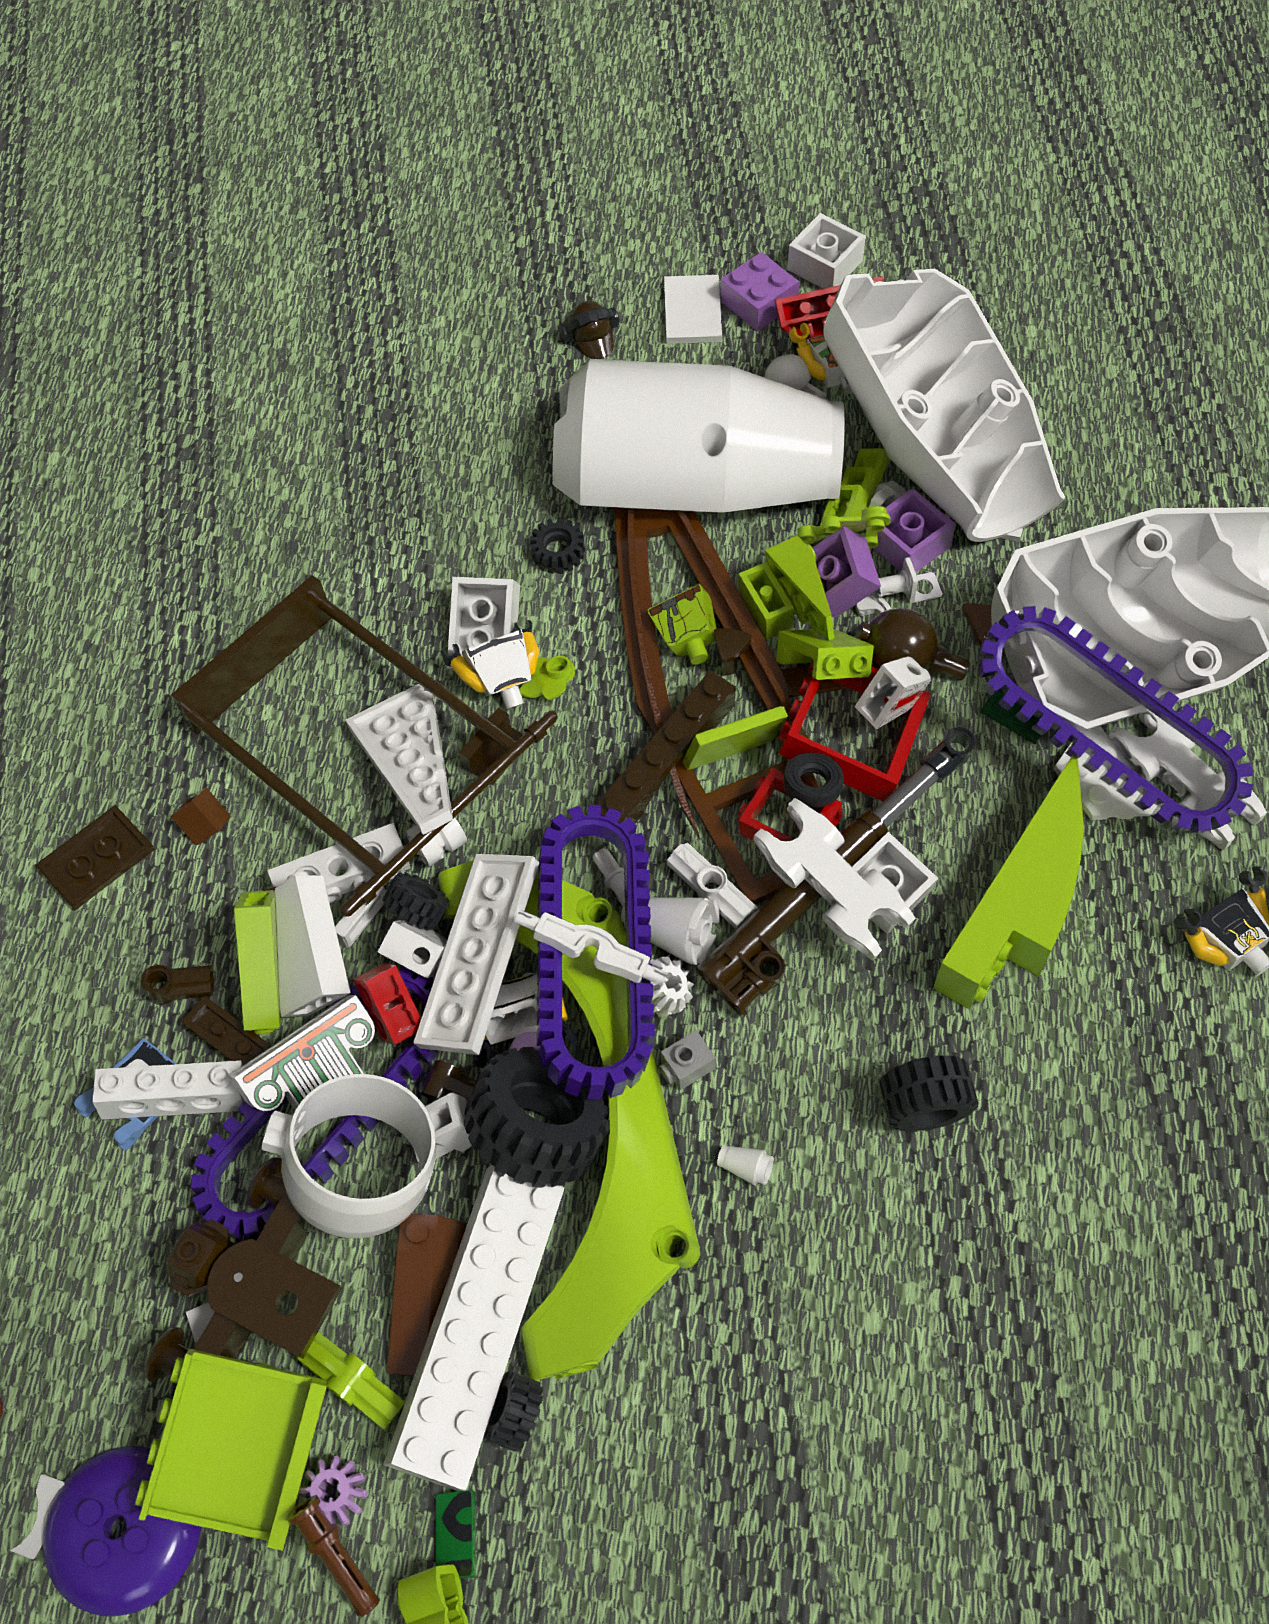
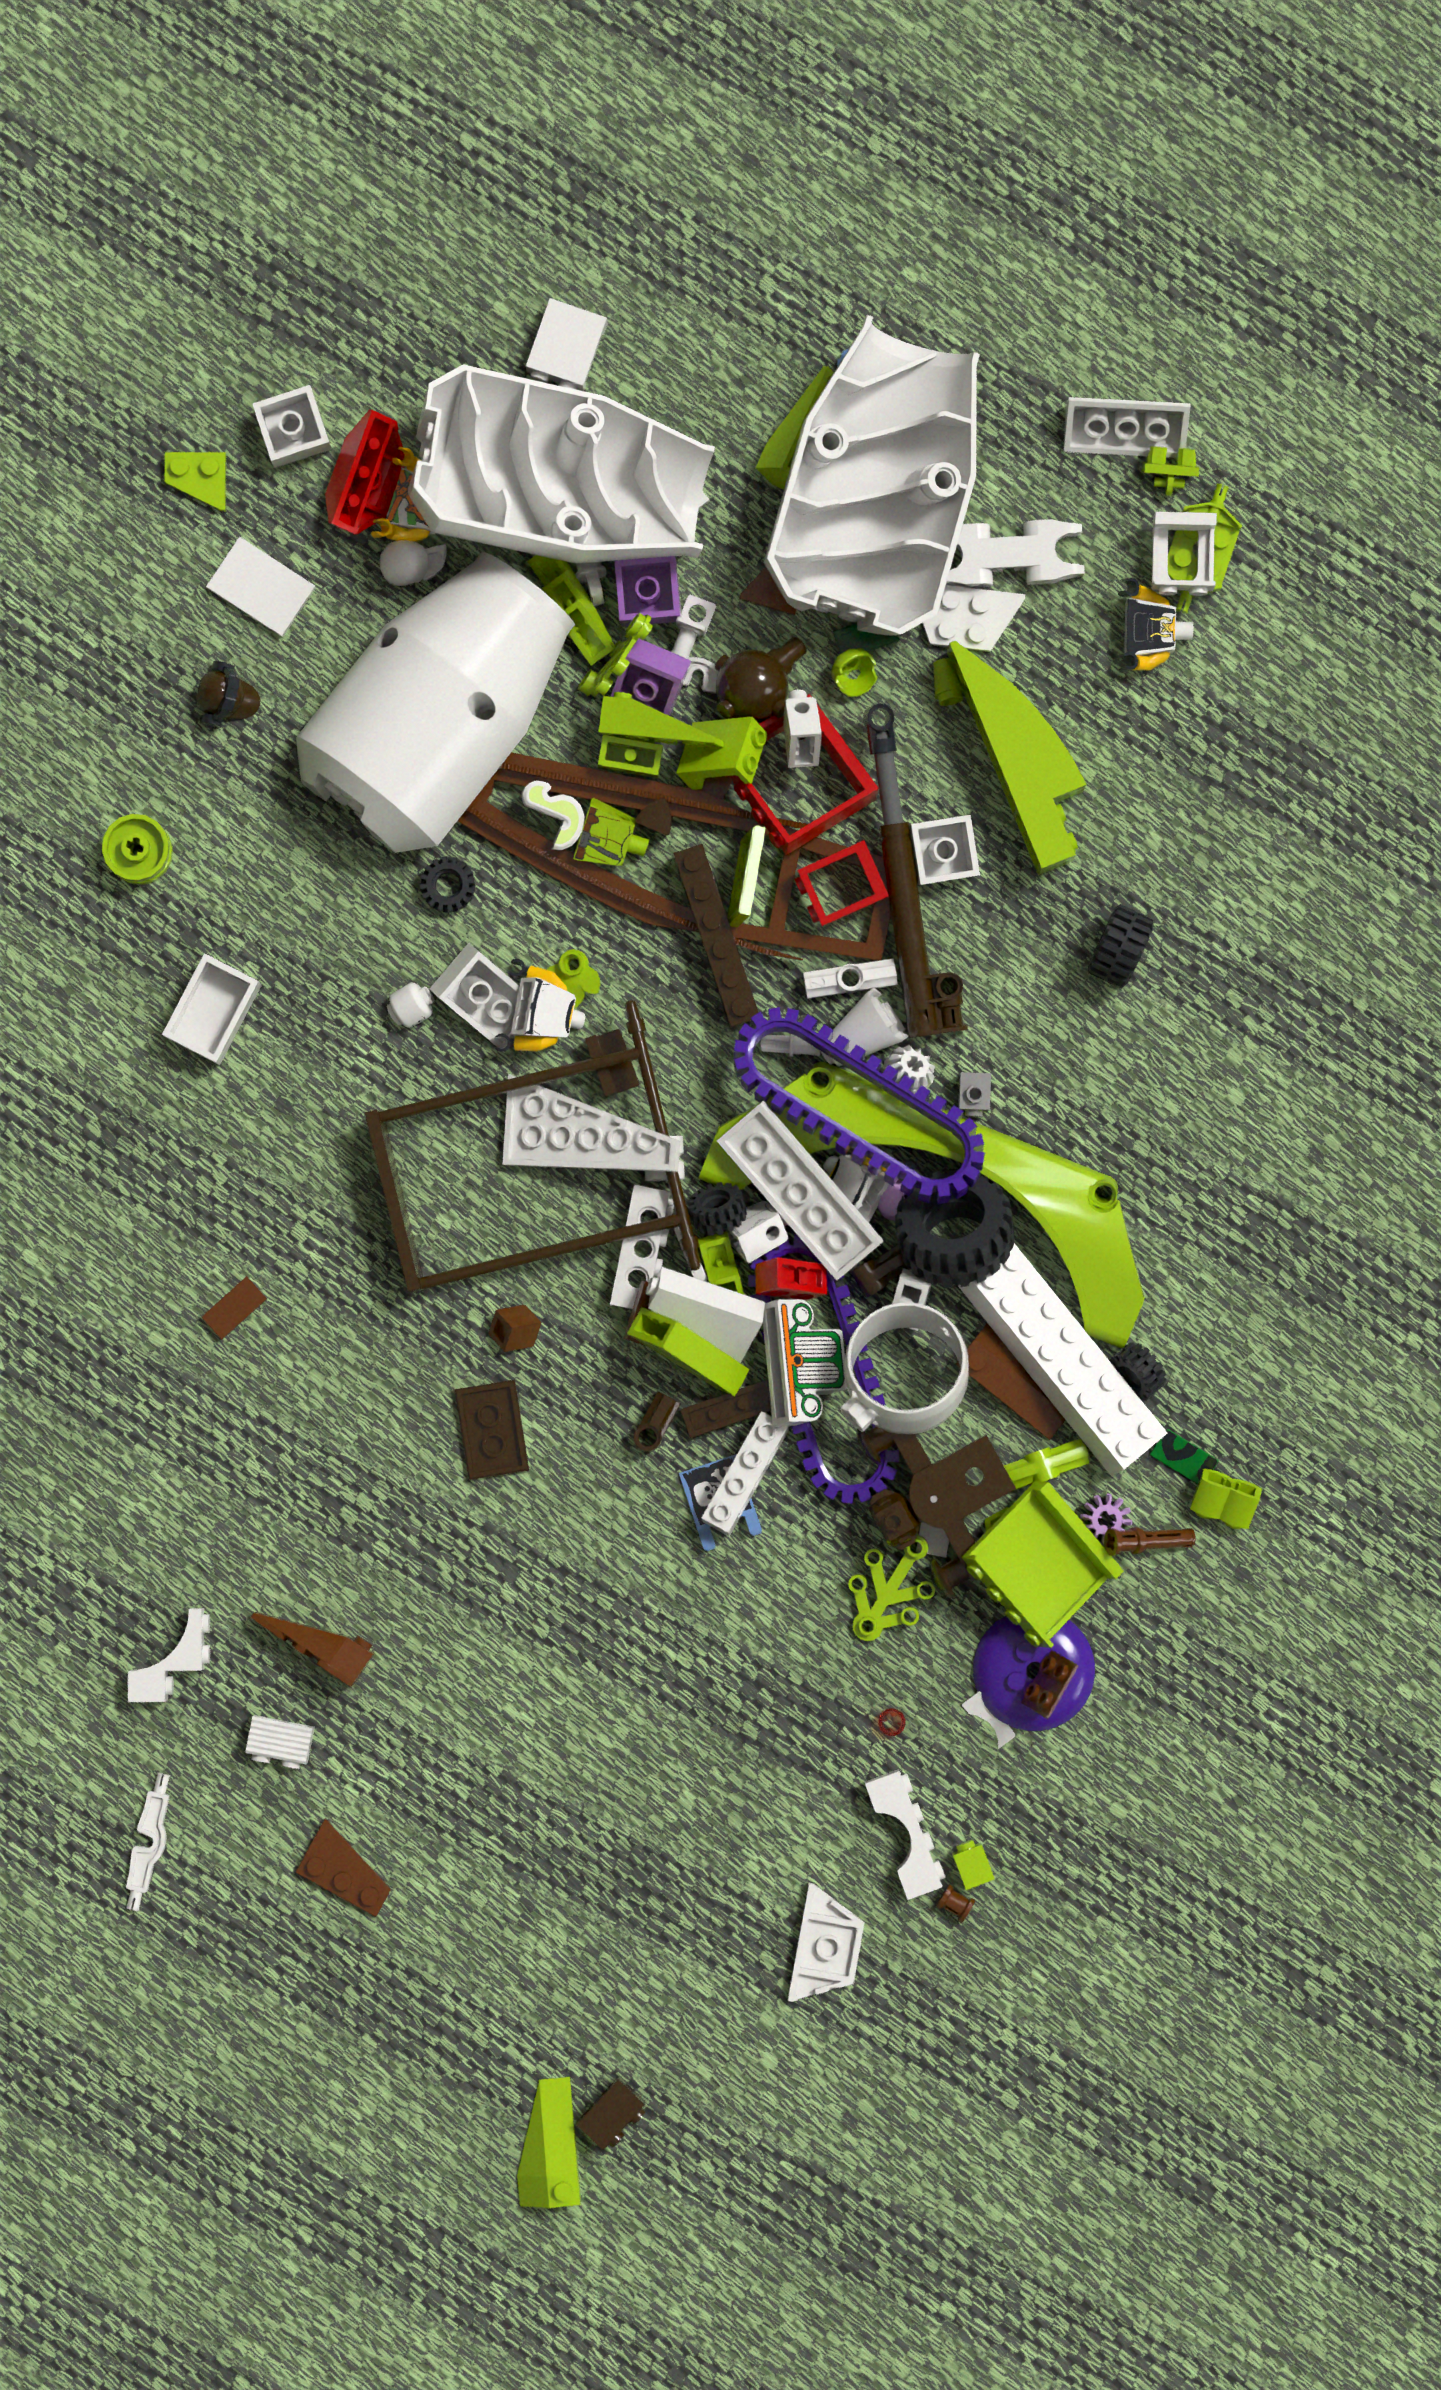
camera: 60 degrees left, 25 degrees up
(85, 1549) = (1049, 1684): none -> reddish brown hinge
(92, 608) = (234, 1308): none -> reddish brown tile
(126, 1309) = (888, 1593): none -> lime plant
(333, 448) = (211, 1009): none -> white piece
(361, 946) = (720, 1262): none -> lime brick
(428, 338) = (128, 833): none -> lime wheel
(435, 576) = (410, 1005): none -> white head
(573, 939) = (881, 1101): white piece -> none
(682, 571) = (559, 807): none -> animal
(742, 232) = (198, 475): none -> lime wing
(746, 1163) = (1075, 1103): white cone -> none
(754, 287) = (291, 517): medium lavender brick -> none
(813, 763) = (830, 831): black tyre -> none
(851, 896) = (948, 891): white piece -> none
(982, 711) = (853, 660): none -> lime hair
(1030, 799) = (946, 683): none -> lime cone
(1052, 371) = (565, 345): none -> white panel
(1183, 818) = (932, 557): dark purple piece -> none

